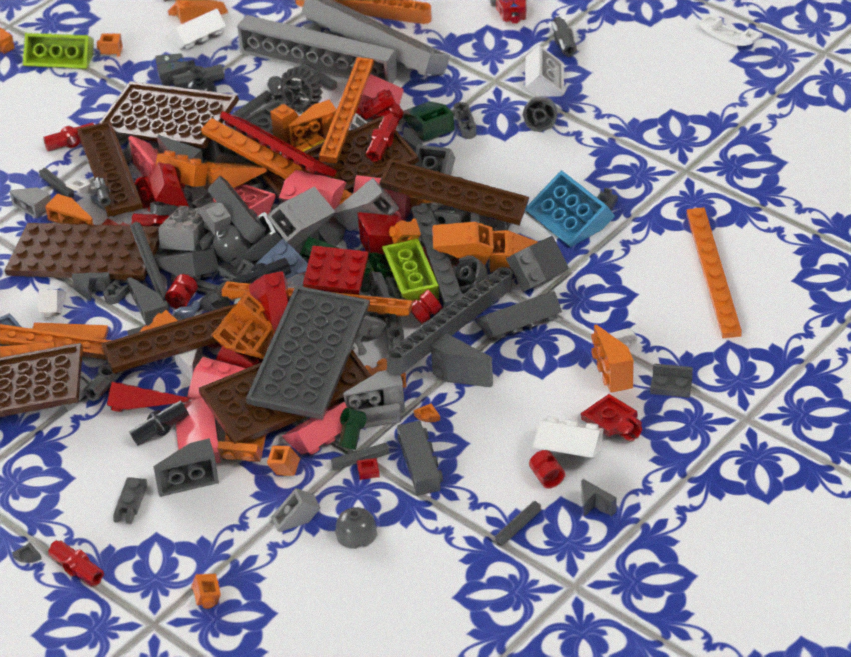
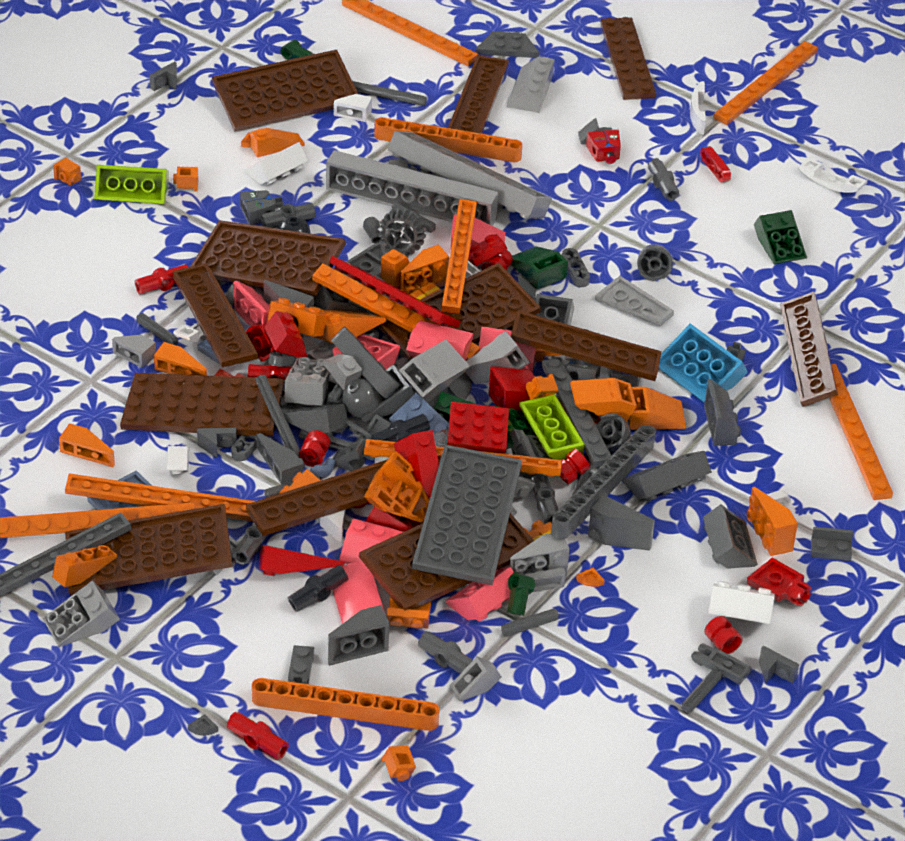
camera: 10 degrees left, 0 degrees up
(86, 330) = (219, 489): orange tile -> none
(102, 191) = (214, 340): dark grey axle -> none
(165, 533) = (345, 704): none -> orange beam
(253, 104) = (354, 245): dark grey axle -> none
(270, 485) = (444, 652): none -> dark grey piece
(283, 460) = (455, 627): orange brick -> none
(355, 528) = (539, 697): dark grey cylinder -> none
(368, 468) = (540, 635): red tile -> none
(382, 138) = (502, 287): red piece -> none
(419, 458) = (591, 624): dark grey brick -> none
(514, 149) = (632, 299): none -> light grey wing
(537, 263) = (678, 422): dark grey slope -> none
(544, 73) = (649, 219): white slope -> none
(549, 499) = (715, 658): none -> dark grey hinge
(569, 376) = (729, 539): none -> dark grey slope
(580, 257) = (720, 415): none -> dark grey slope
(617, 21) = (715, 164): none -> red beam
(668, 88) = (780, 237): none -> dark green slope
(678, 194) = (808, 349): none -> plate

